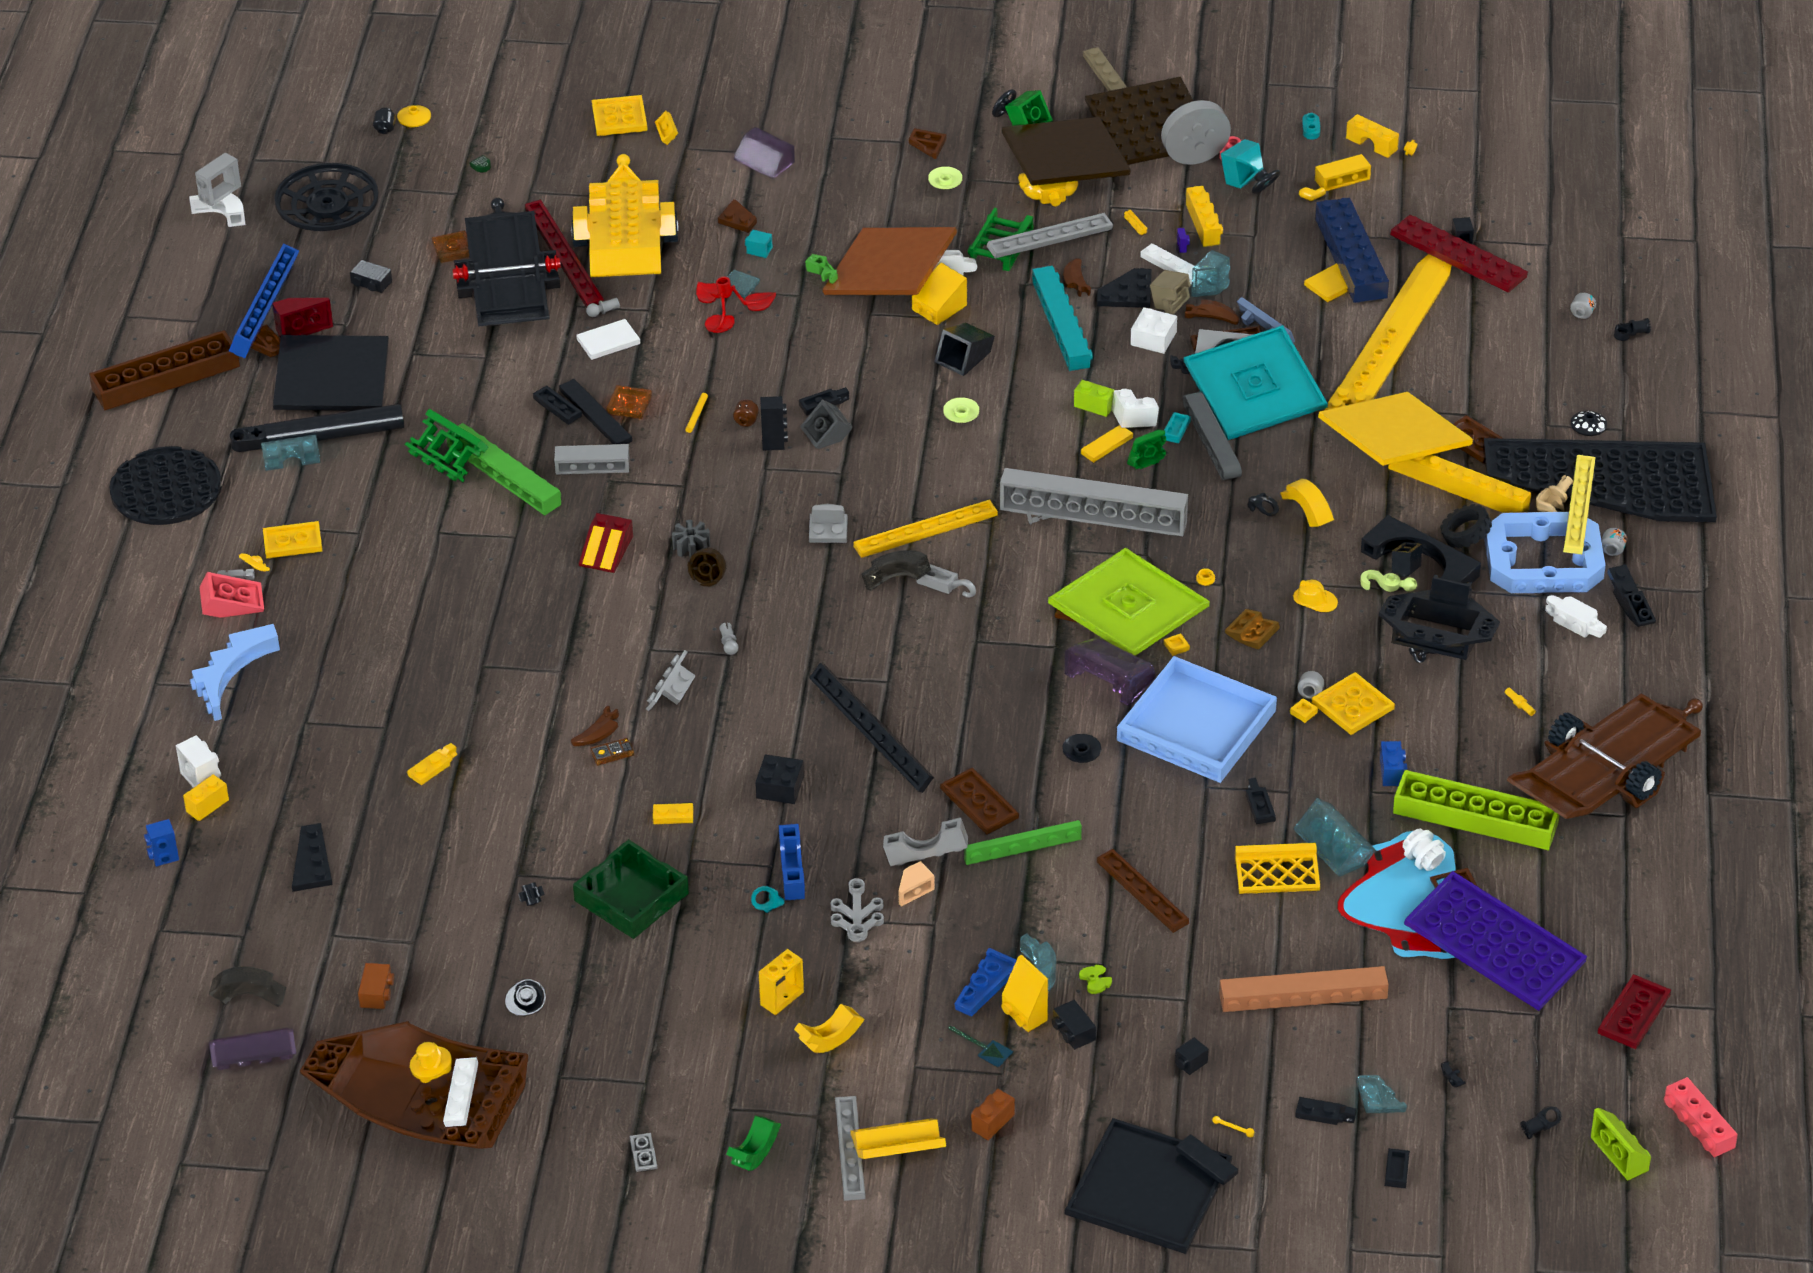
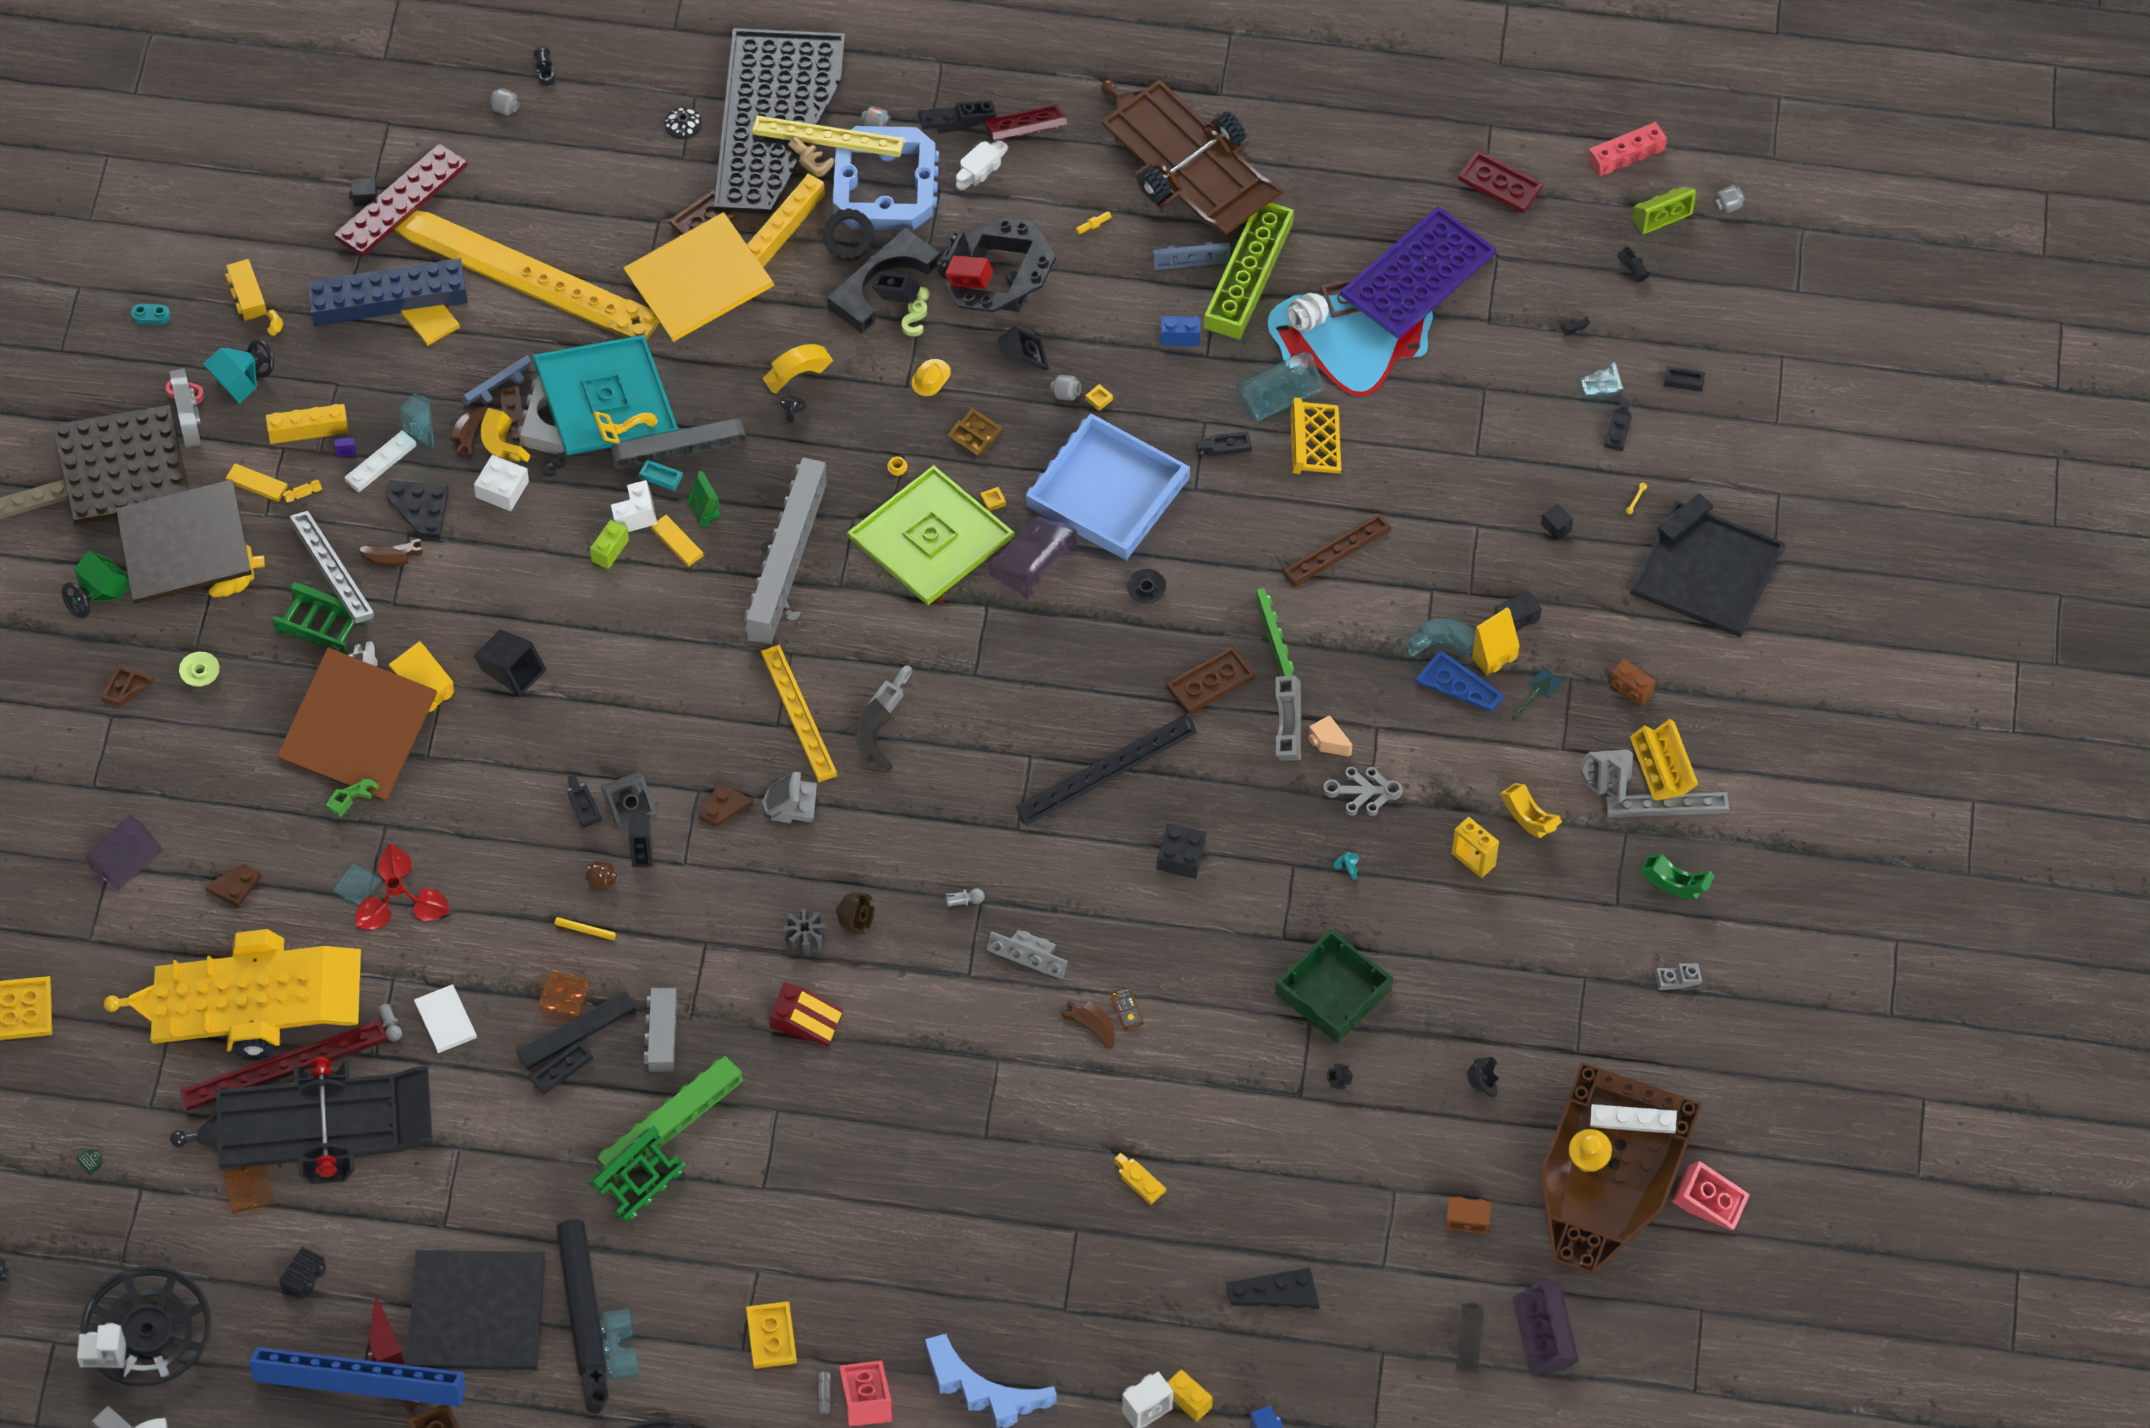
camera: 90 degrees left, 15 degrees up
(255, 561) = (806, 1372): yellow piece -> none
(299, 167) = (102, 1349): none -> white brick
(387, 1171) = (1710, 1196): none -> coral slope
(666, 127) = (55, 956): yellow plate -> none
(672, 813) = (1219, 952): yellow plate -> none
(759, 243) = (295, 860): teal brick -> none
(791, 862) = (1281, 842): blue arch -> none
(824, 486) = (723, 805): none -> reddish brown wing
(877, 1089) = (1608, 772): none -> light grey piece
(961, 410) = (612, 663): yellowish green dish -> none
(1061, 318) = (466, 568): teal brick -> none
(1095, 984) = (1449, 598): lime piece -> none
(1142, 196) = (257, 482): none -> yellow tile
(1170, 291) = (443, 459): dark tan plate -> none
(1207, 320) = (494, 433): none -> yellow arch
(1214, 387) = (647, 418): none -> yellow piece
(1303, 989) = (1473, 428): nougat brick -> none
(1352, 655) = (1023, 347): none -> black slope
(1353, 703) = (1091, 356): yellow plate -> none
(1384, 139) = (174, 264): yellow arch -> none
(1410, 147) = (209, 224): yellow plate -> none
(1423, 595) = (969, 272): none -> red brick
(1486, 765) = (1191, 256): none -> sand blue hinge
(1631, 643) = (1024, 122): none -> dark red plate
(1647, 1205) = (1730, 199): none -> light grey head

